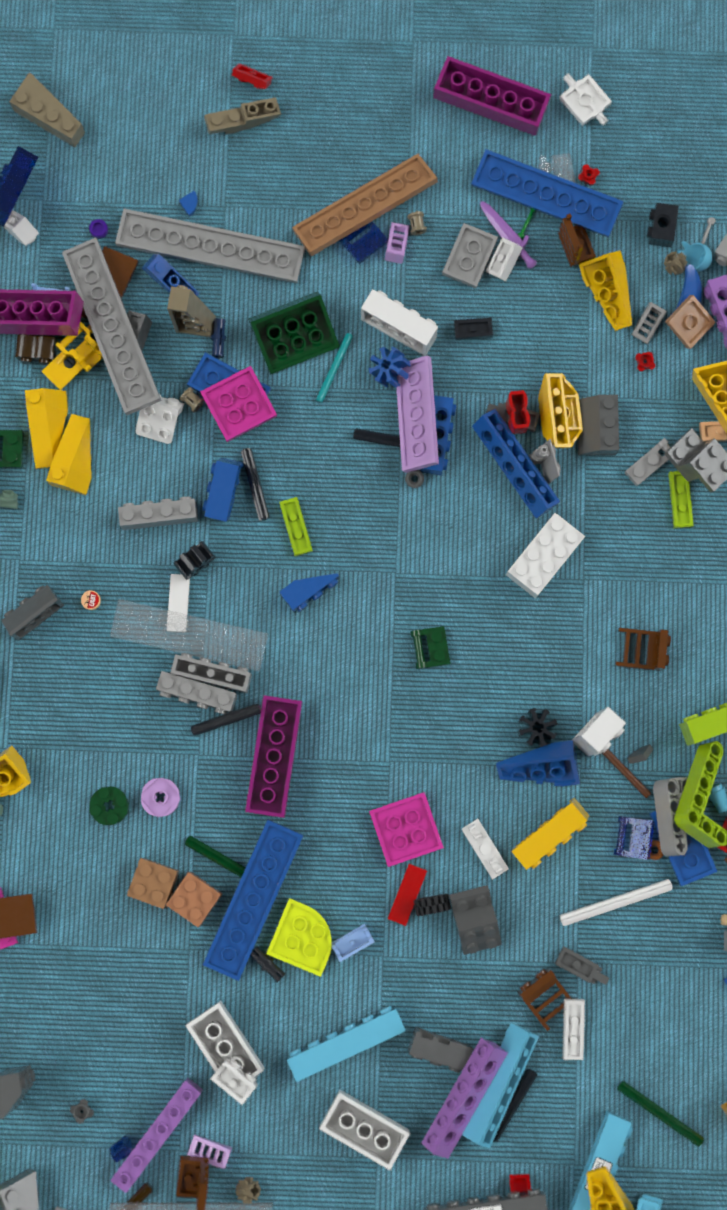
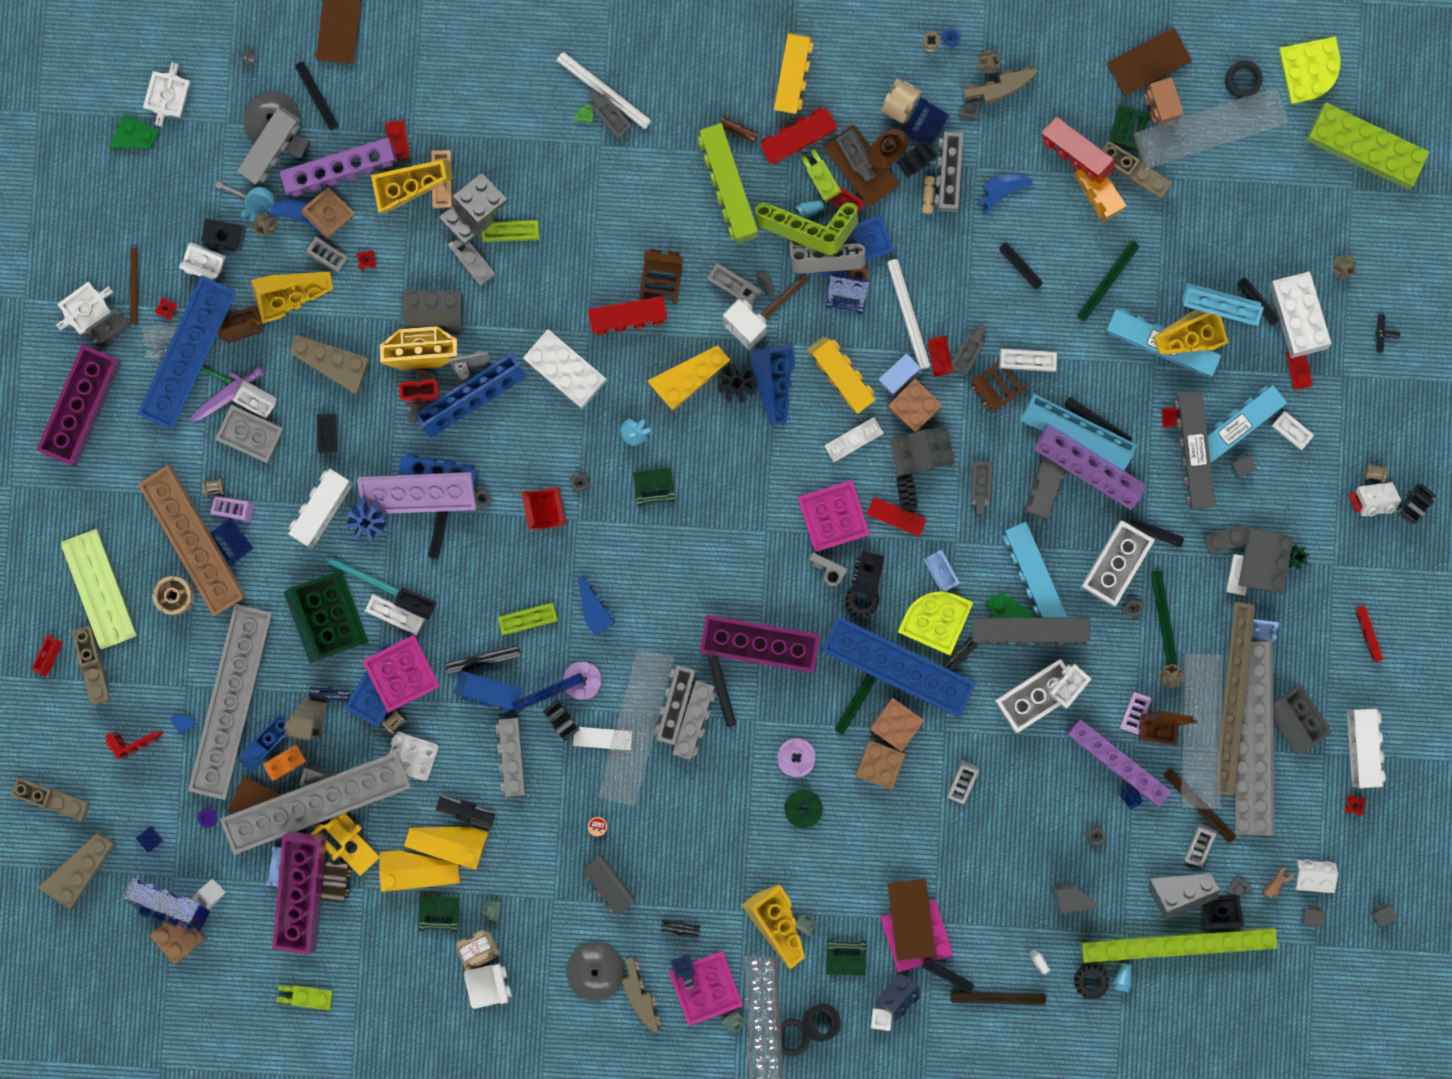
camera: 85 degrees left, 5 degrees up
(78, 176) = (149, 839): none -> clear blue plate
(105, 471) = (465, 811): none -> black piece
(116, 83) = (50, 799): none -> dark tan slope
(151, 298) = (285, 762): none -> orange brick
(152, 976) = (968, 766): none -> light grey slope
(163, 143) = (117, 745): none -> red plate
(222, 546) = (548, 692): none -> clear blue axle
(225, 577) = (592, 684): none -> lavender plate
(293, 1040) = (1031, 630): none -> dark grey brick
(297, 398) = (395, 615): none -> white tile
(308, 417) = (415, 603): none -> black plate
(309, 861) = (857, 611): none -> black tyre
(309, 1180) = (1164, 617): none -> dark green axle
(311, 1013) = (1004, 606): none -> green wing
(312, 1149) = (1133, 613): none -> dark grey plate
(316, 121) = (98, 589): none -> yellowish green plate
(320, 185) = (178, 585): none -> tan brick
(348, 866) = (868, 573): none -> black brick
(358, 817) = (819, 562): none -> light grey plate
(398, 1171) = (1157, 532): none -> black axle
(404, 537) = (544, 508): none -> red plate
(432, 569) = (583, 478): none -> dark grey plate
(442, 982) = (981, 485): none -> dark grey hinge
(483, 625) = (633, 432): none -> medium azure piece
(521, 911) = (914, 406): none -> nougat brick
(539, 338) = (337, 364): none -> dark tan wedge
(541, 677) = (688, 377): none -> yellow wedge
(552, 895) = (900, 375): none -> light blue hinge
(568, 122) = (108, 328): none -> dark grey hinge
(574, 936) = (940, 356): none -> red plate
(602, 616) = (627, 315): none -> red brick
(608, 145) = (133, 286): none -> reddish brown bar
(635, 206) = (202, 262): none -> white bracket
(638, 721) = (733, 284): none -> light grey plate
(671, 1020) = (1020, 265): none -> black axle

